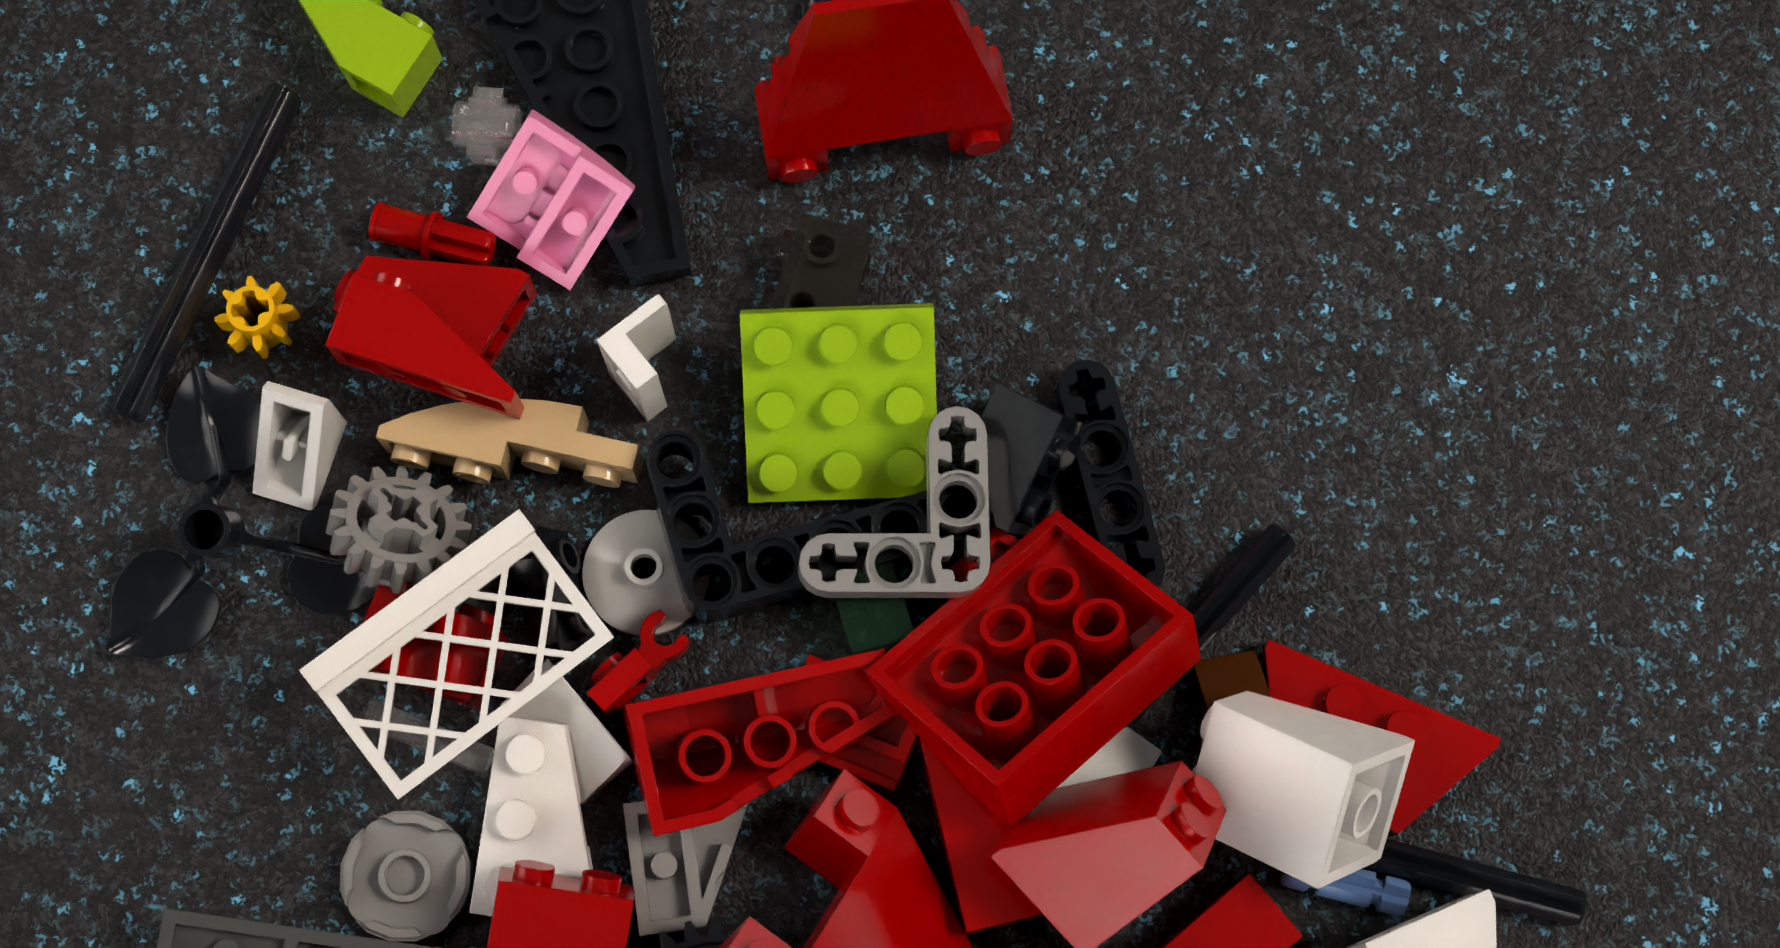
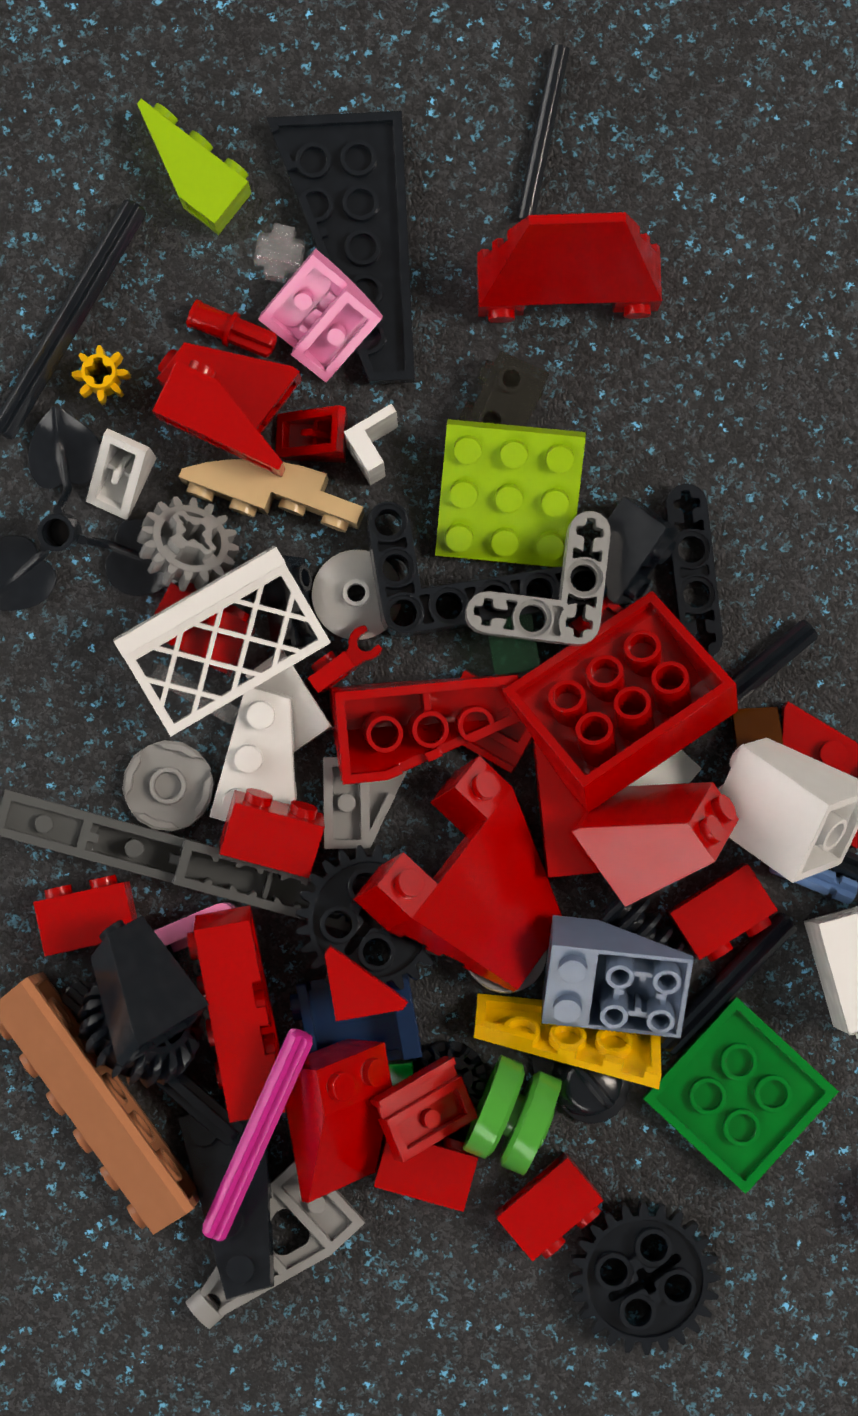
camera: 10 degrees right, 10 degrees up
(560, 360) = (312, 434): none -> red slope

